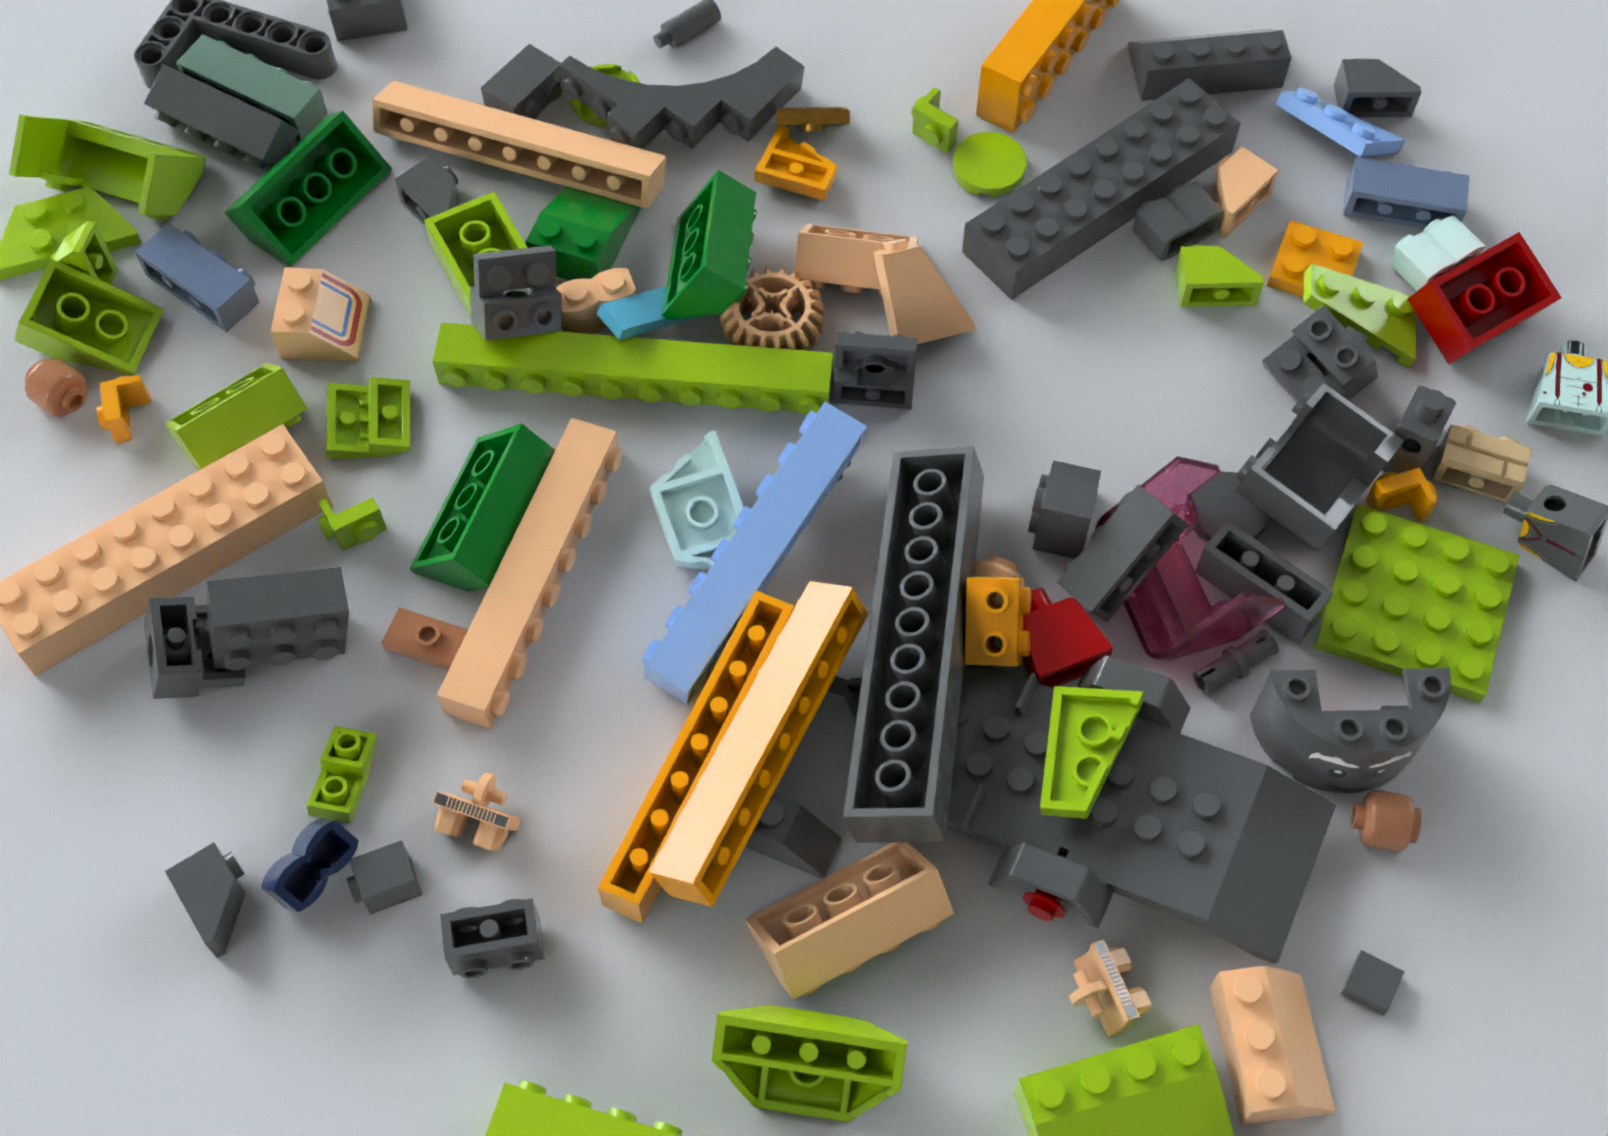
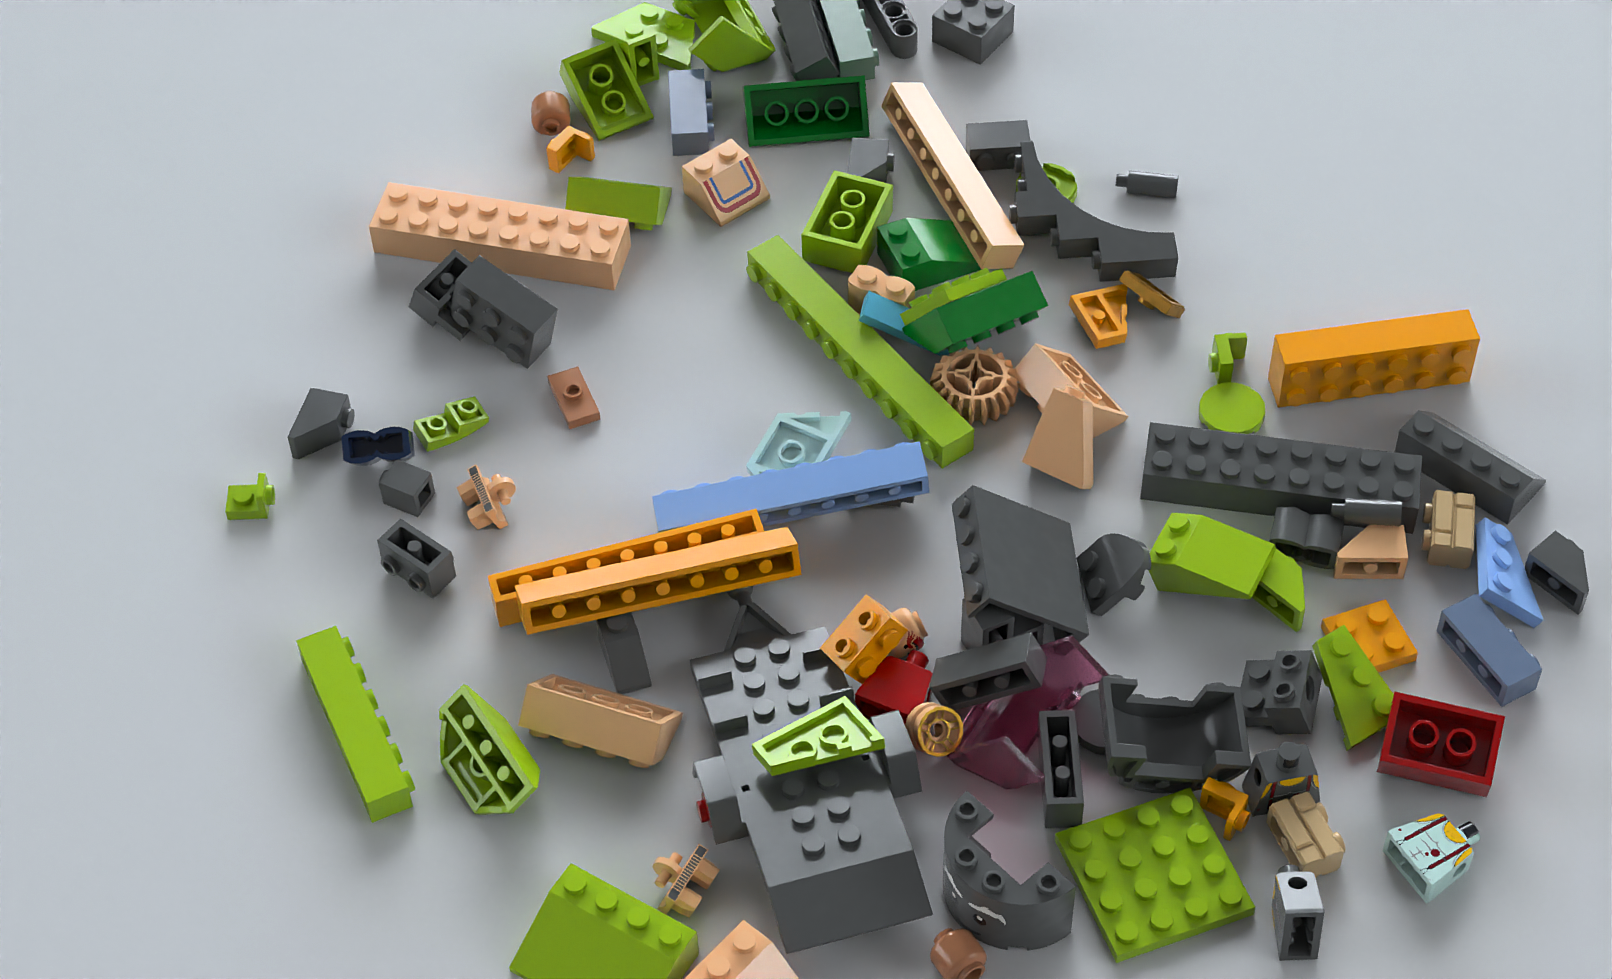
camera: 50 degrees right, 10 degrees down
(233, 1043) = (250, 500): none -> lime bracket
(352, 526) = (606, 304): lime bracket -> none
(368, 419) = (684, 258): lime slope -> none
(483, 509) = (683, 355): green slope -> none
(515, 293) = (827, 246): dark grey brick -> none
(530, 574) = (666, 405): light nougat brick -> none
(677, 248) = (946, 293): none -> lime plate
(863, 353) = (988, 458): dark grey brick -> none
(915, 650) = (799, 611): dark grey brick -> none
(1032, 439) = (1018, 562): none -> dark grey panel
(1086, 376) = (1113, 570): none -> dark grey slope
(1138, 641) = (947, 729): none -> light nougat wheel
(1148, 299) = (1208, 558): none -> lime slope
(1213, 155) = (1369, 511): none -> dark grey cylinder
(1235, 662) = (993, 799): dark grey pin -> none
(1266, 123) = (1450, 529): none -> tan brick
(1435, 251) = (1454, 689): light aqua brick -> none

